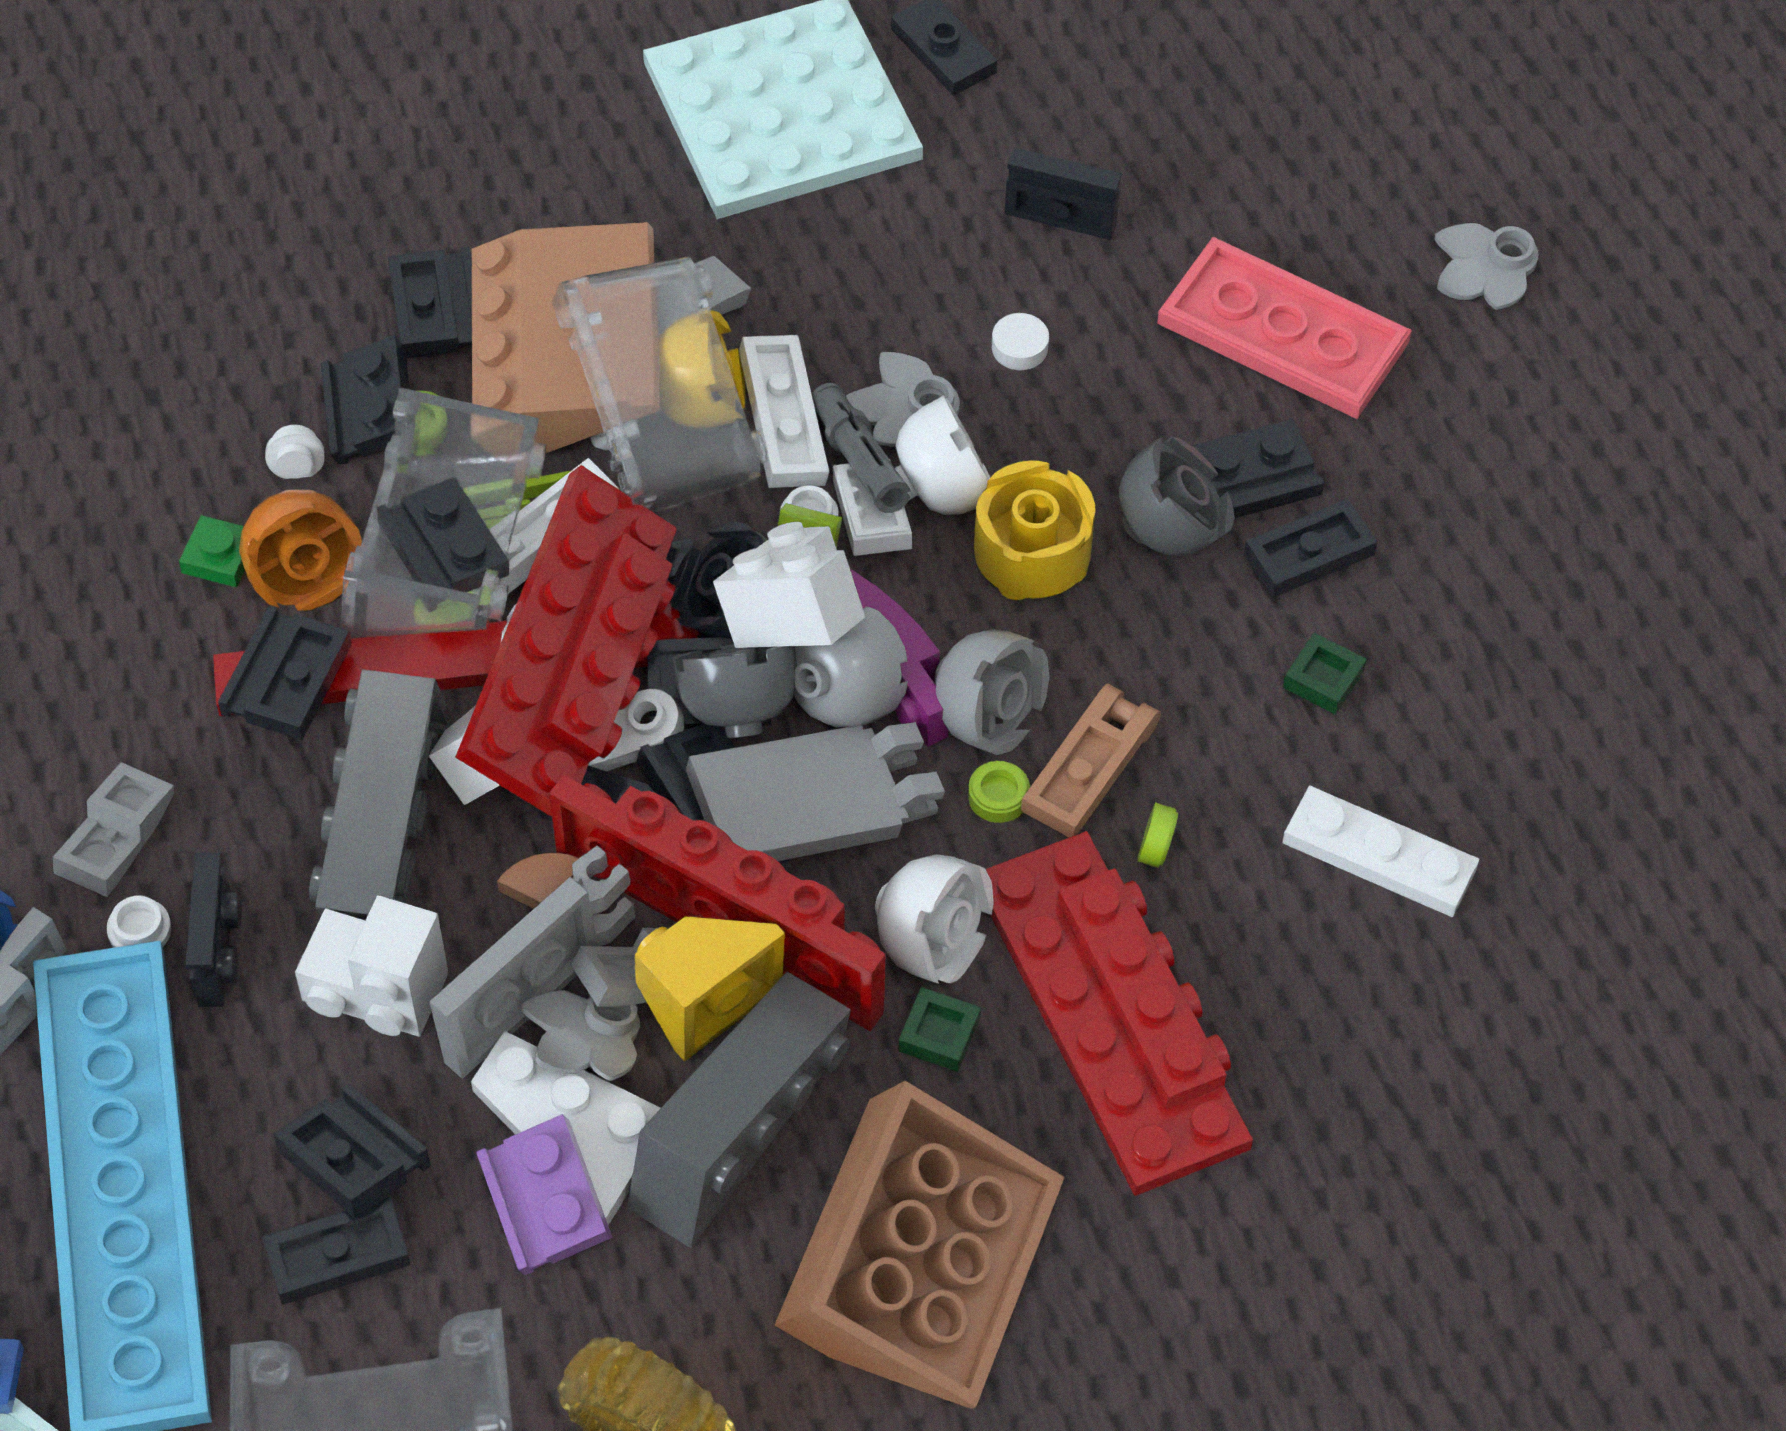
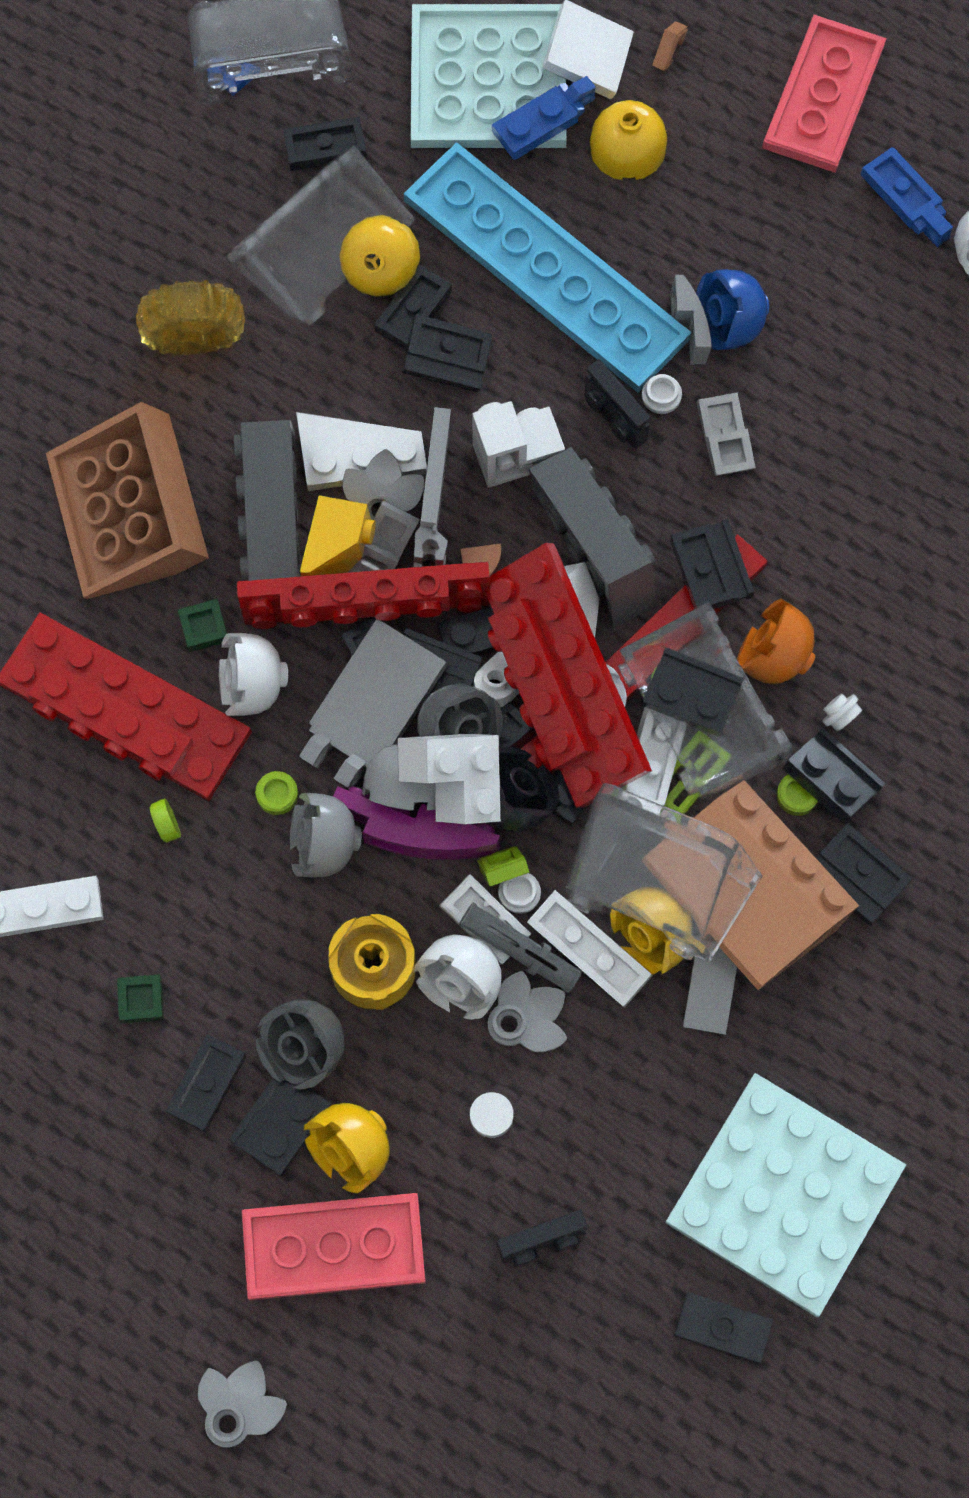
camera: 145 degrees right, 15 degrees up
(214, 552) = (830, 627): green plate -> none
(324, 1327) = (391, 244): none -> yellow cylinder
(544, 1194) = (334, 400): medium lavender plate -> none
(1089, 761) = (236, 843): nougat plate -> none
(1194, 385) = (349, 1142): none -> yellow cylinder

